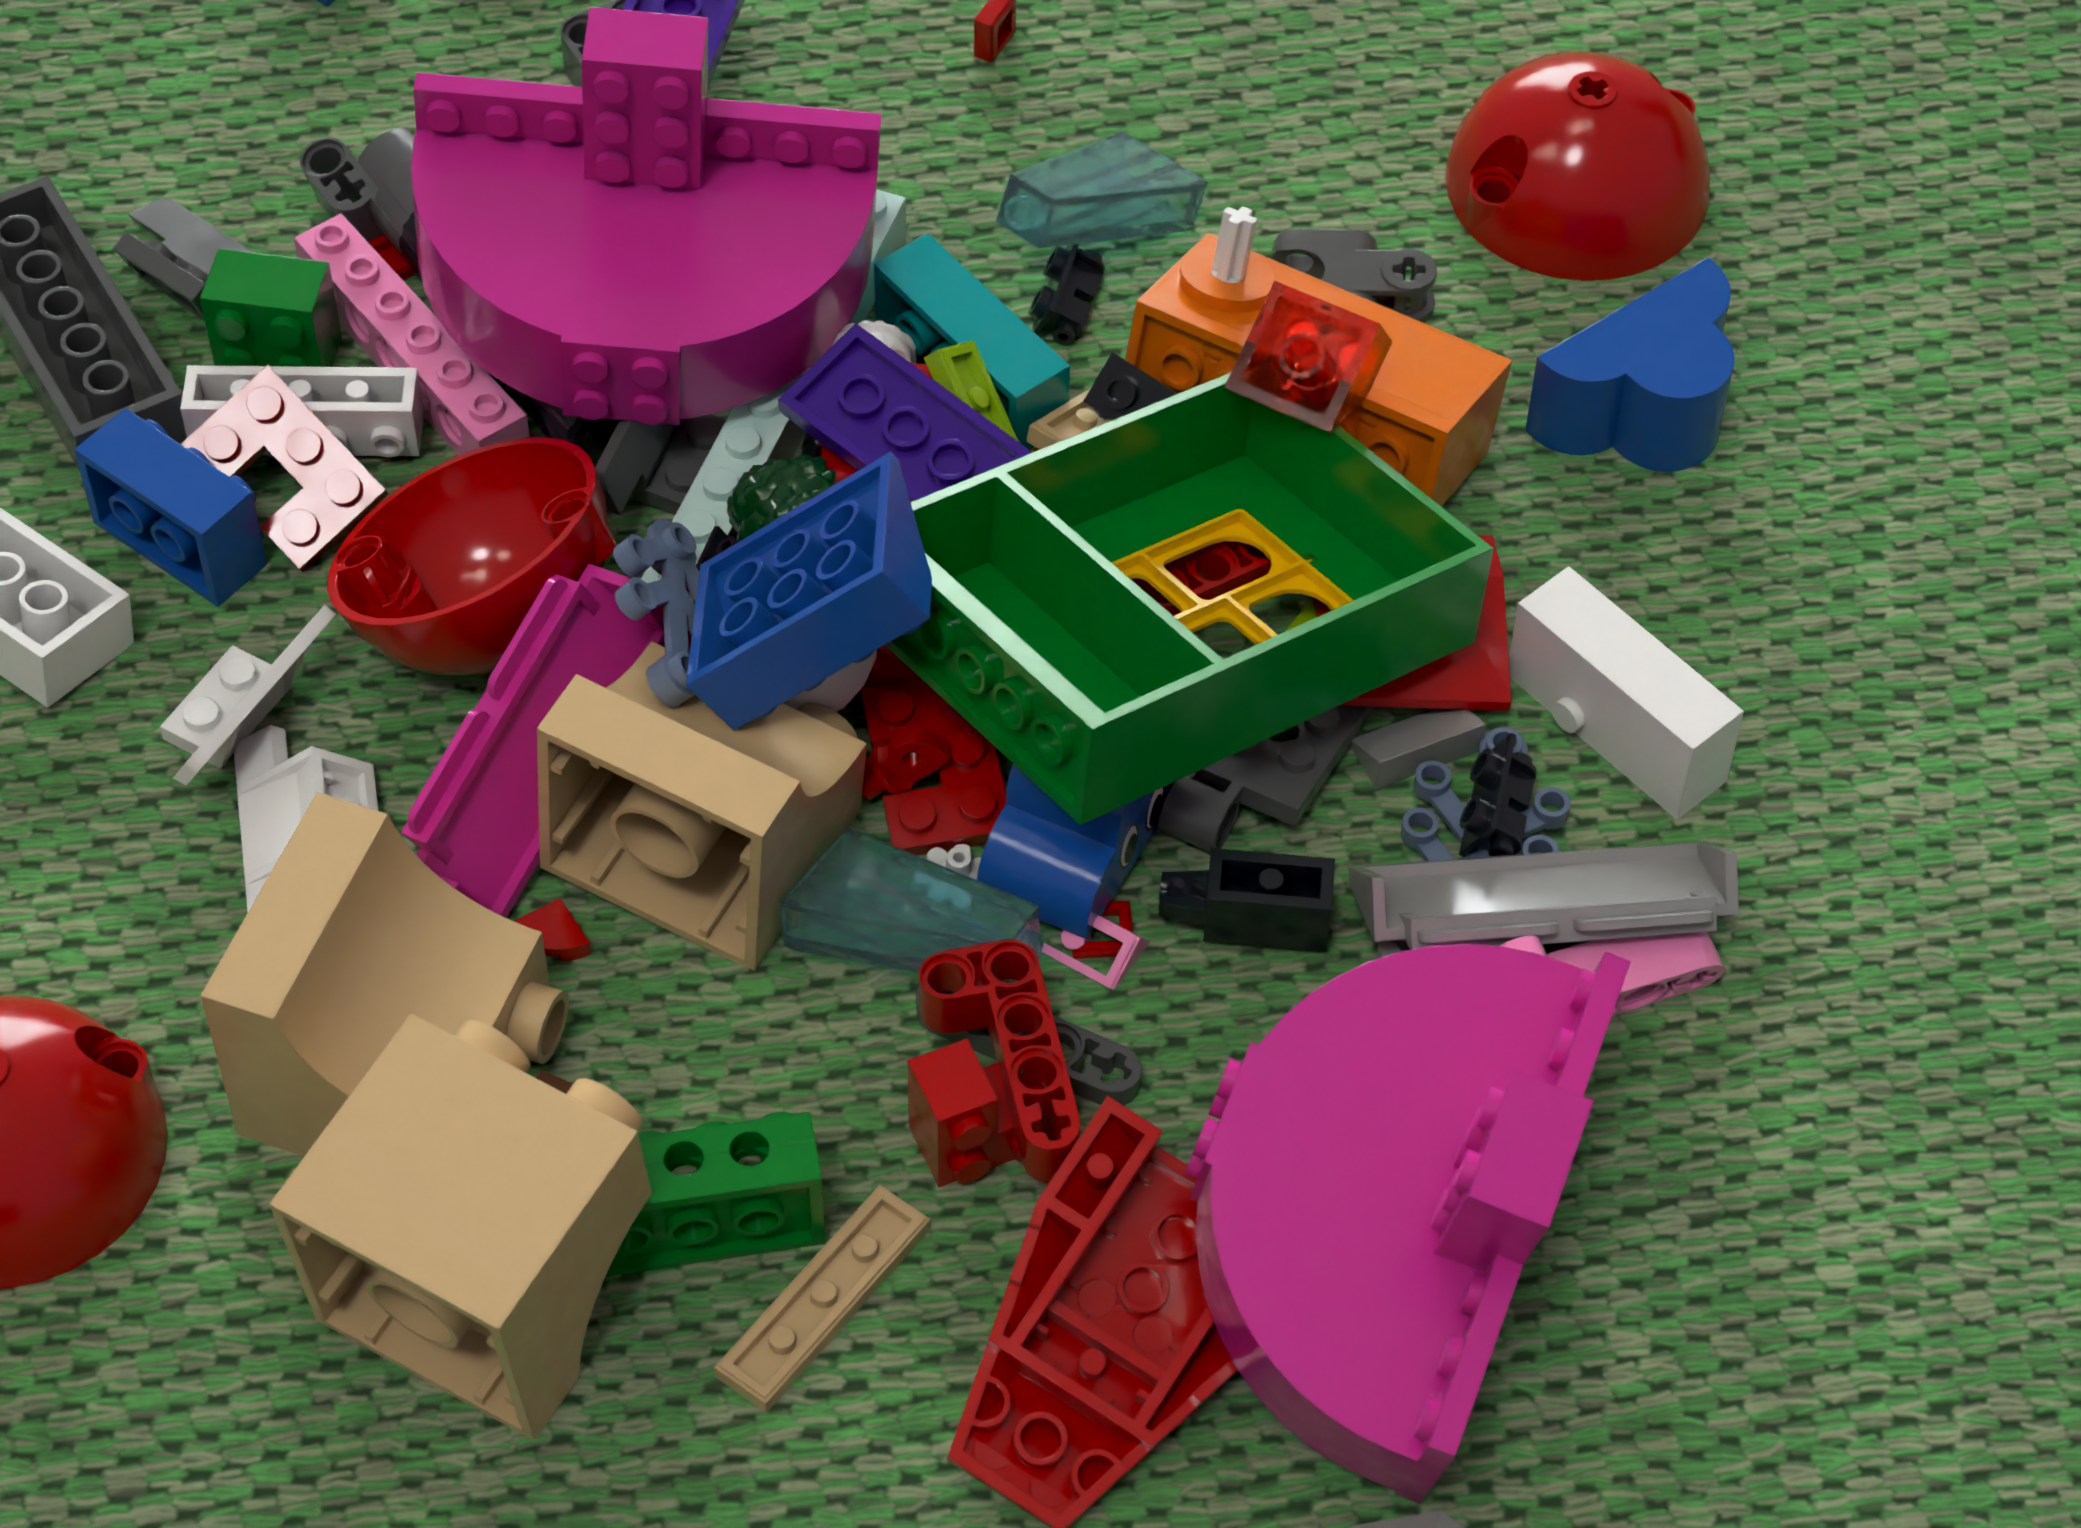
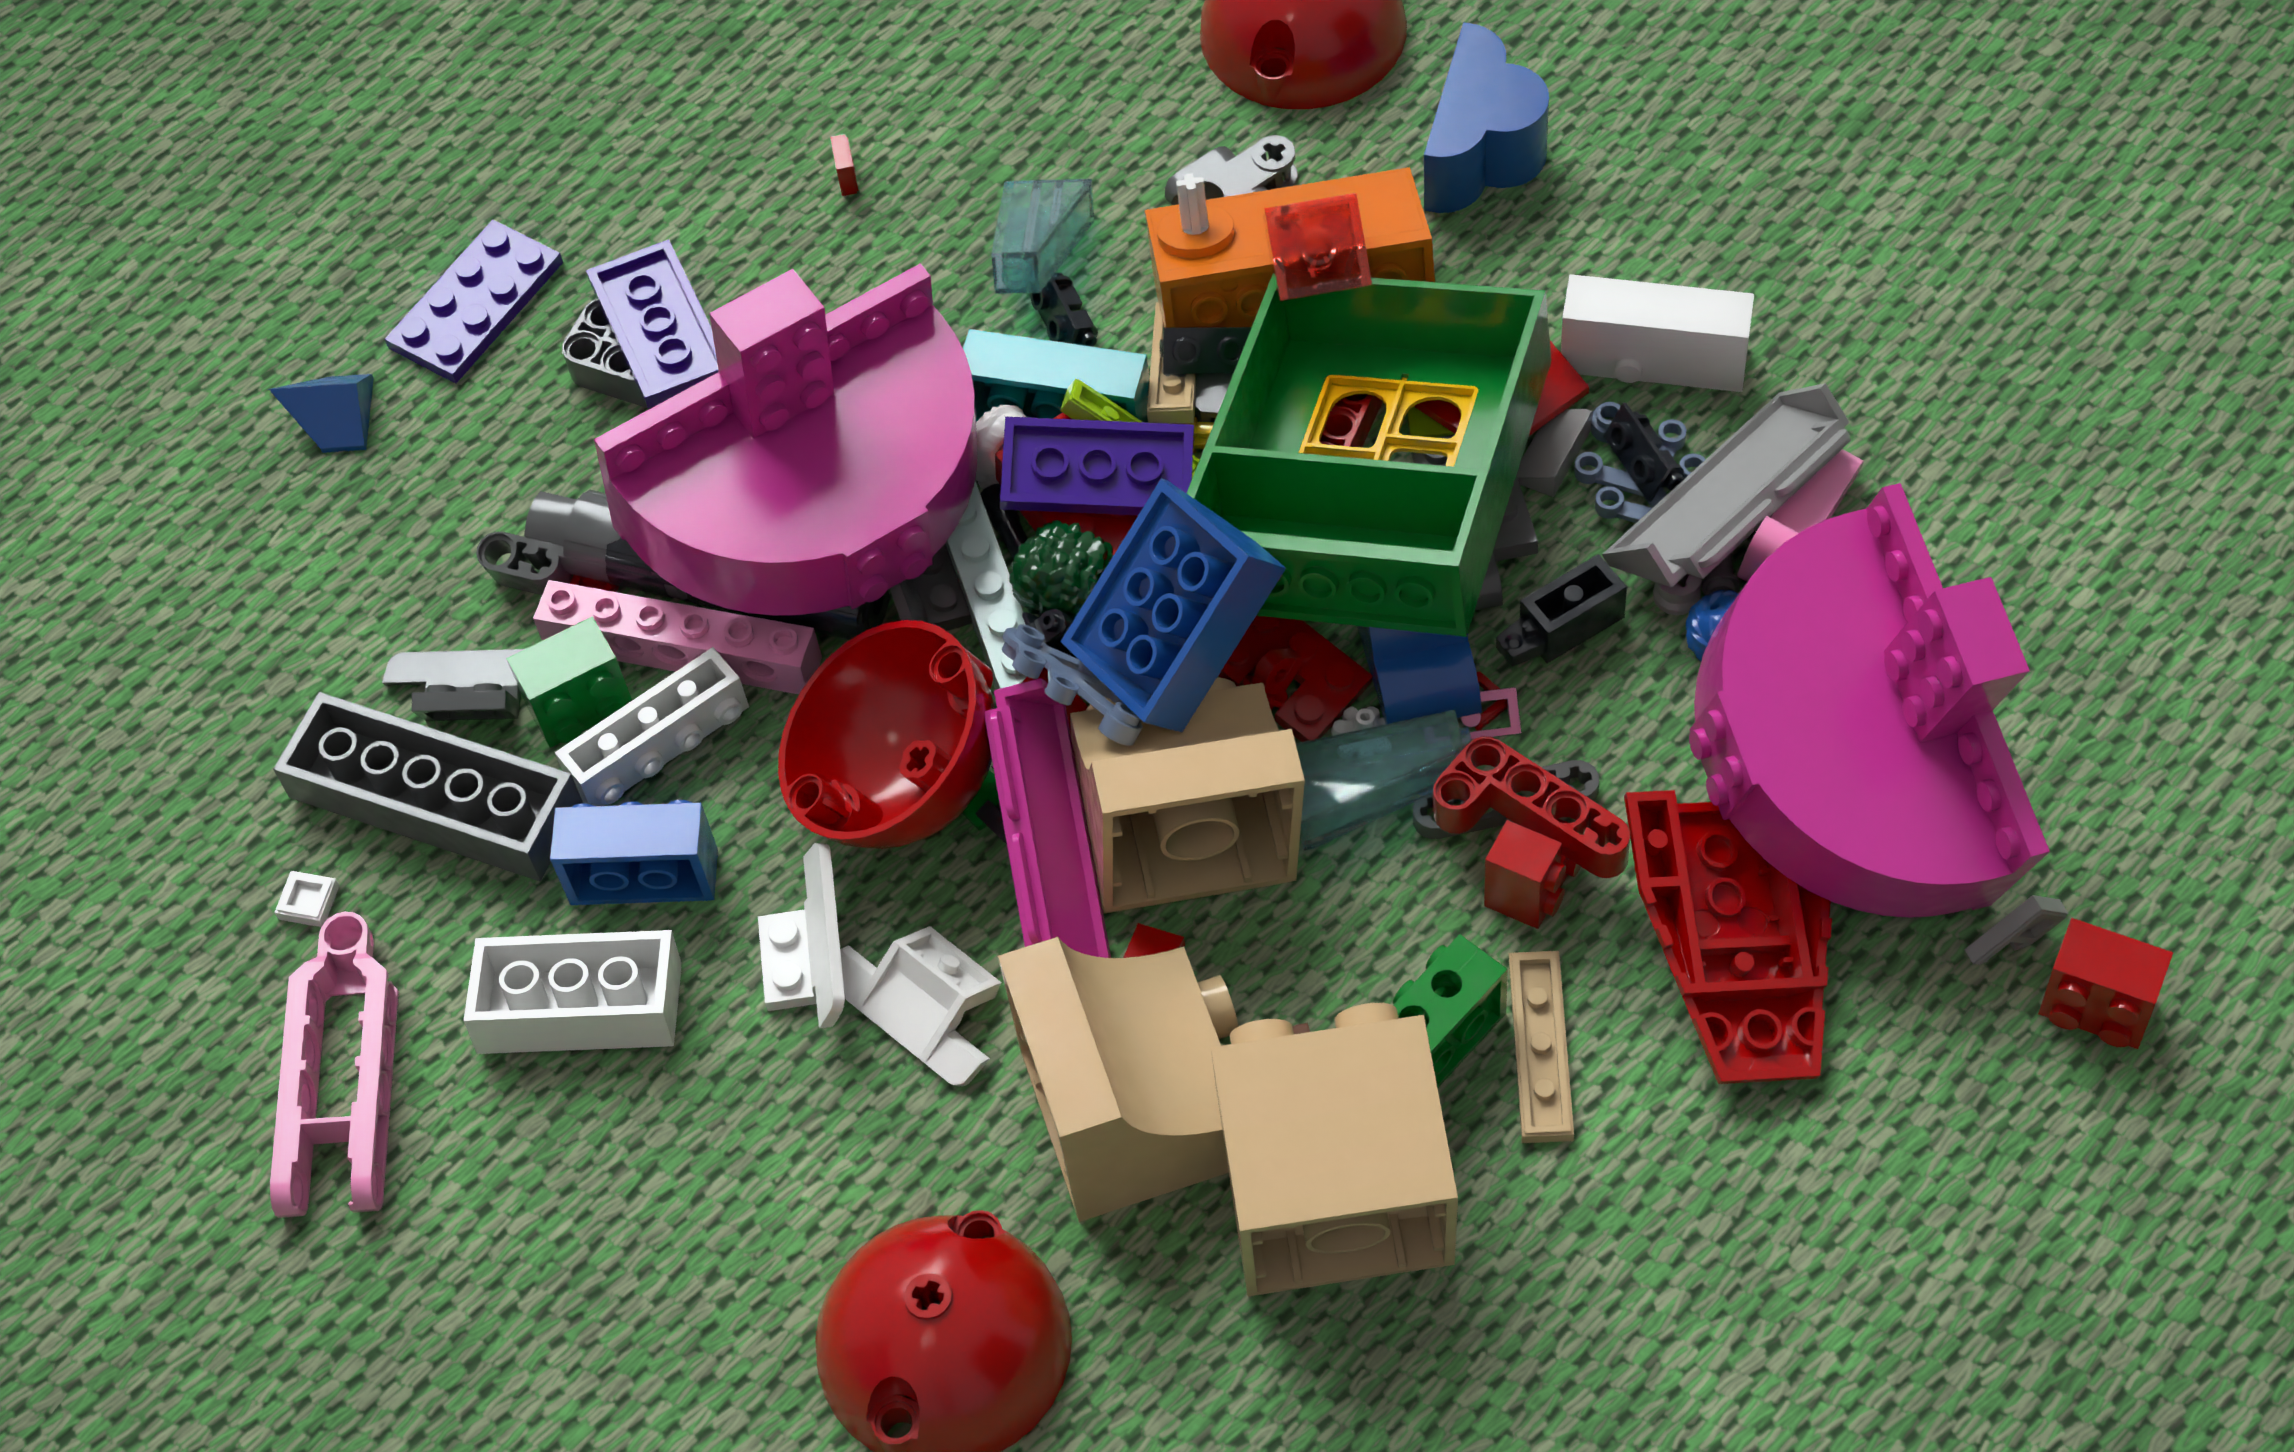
camera: 30 degrees left, 5 degrees up
(334, 483) = (658, 746): plate -> none

